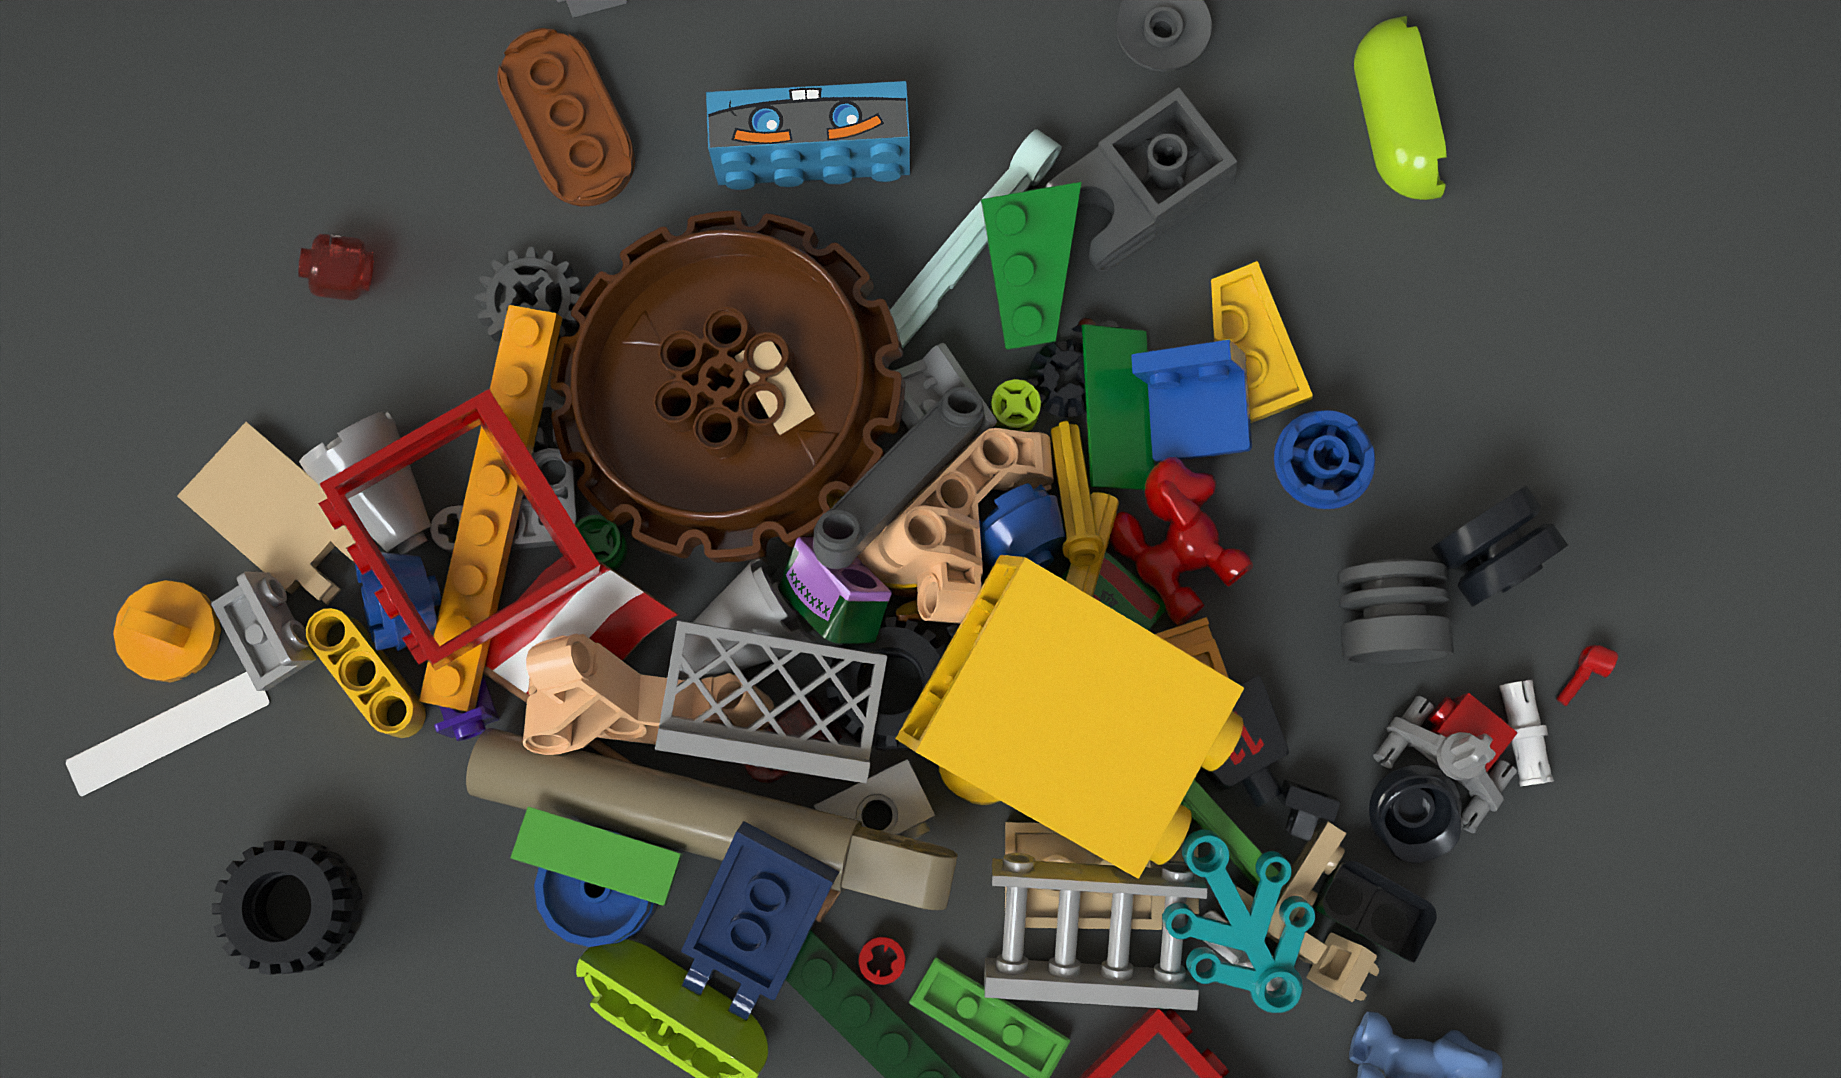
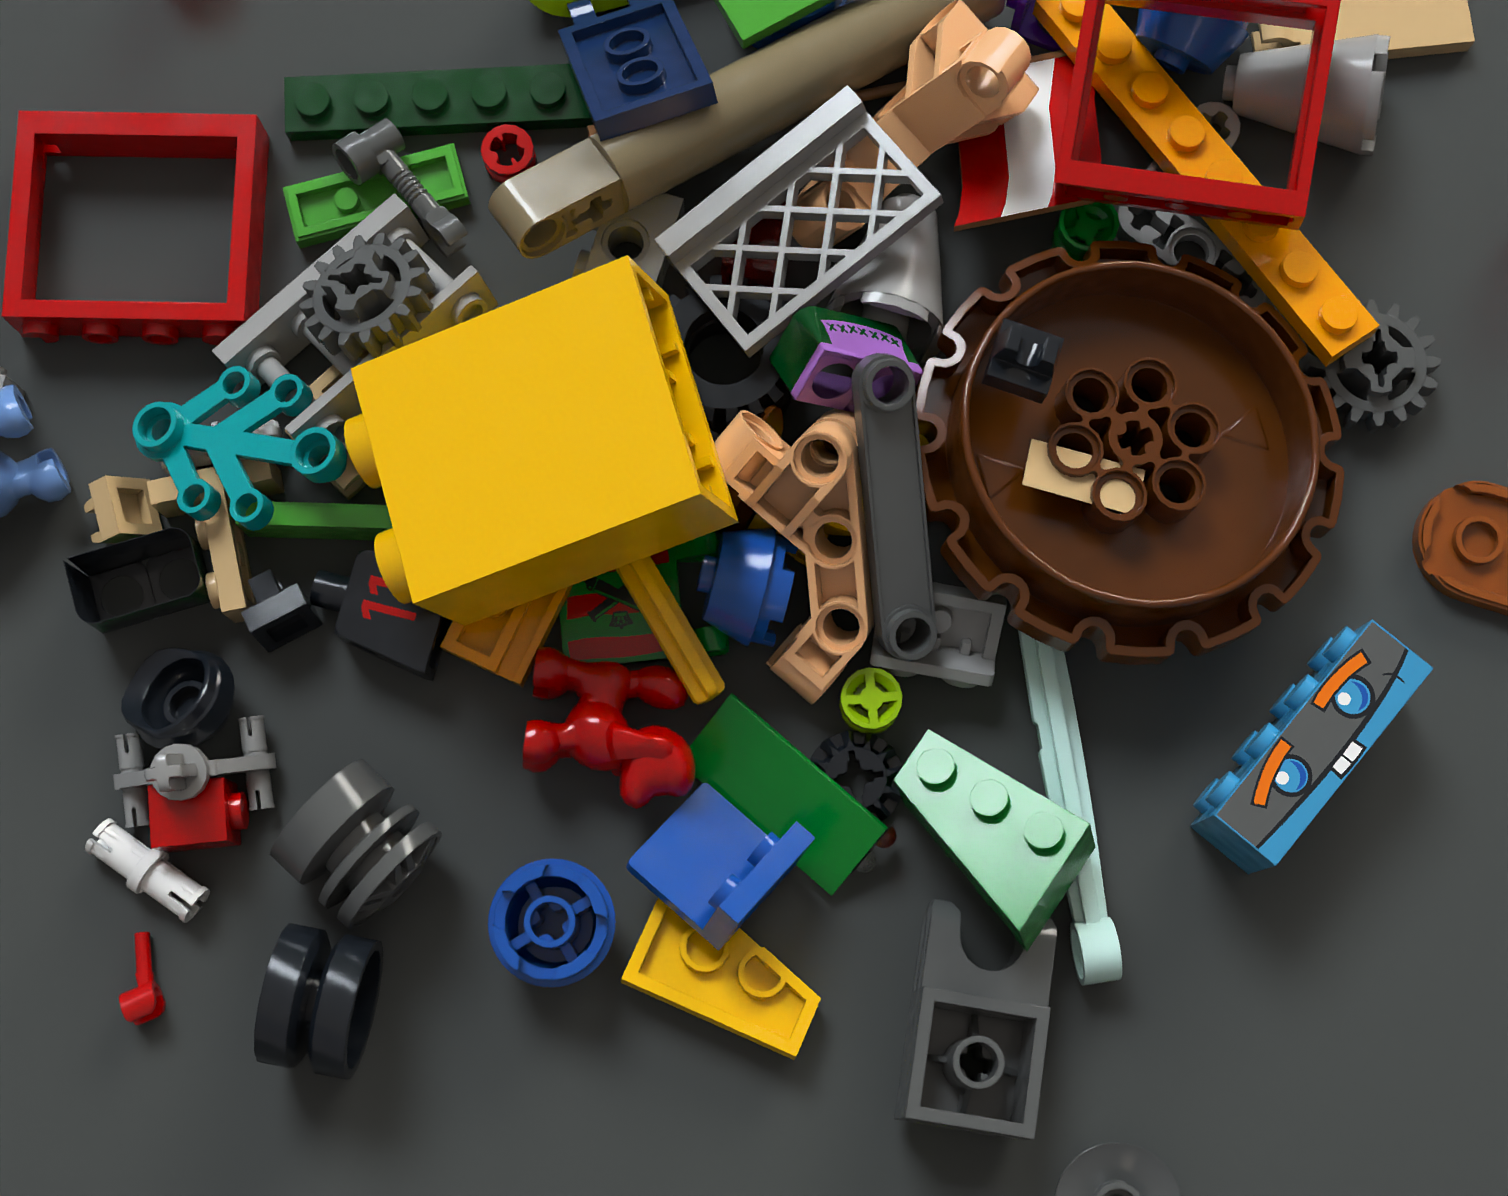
camera: 135 degrees right, 0 degrees up
(741, 471) = (1022, 361): none -> black tile
(967, 1042) = (377, 152): none -> dark grey brick
(1082, 542) = (739, 669): yellow axle -> none
(1085, 911) = (367, 296): none -> dark grey gear

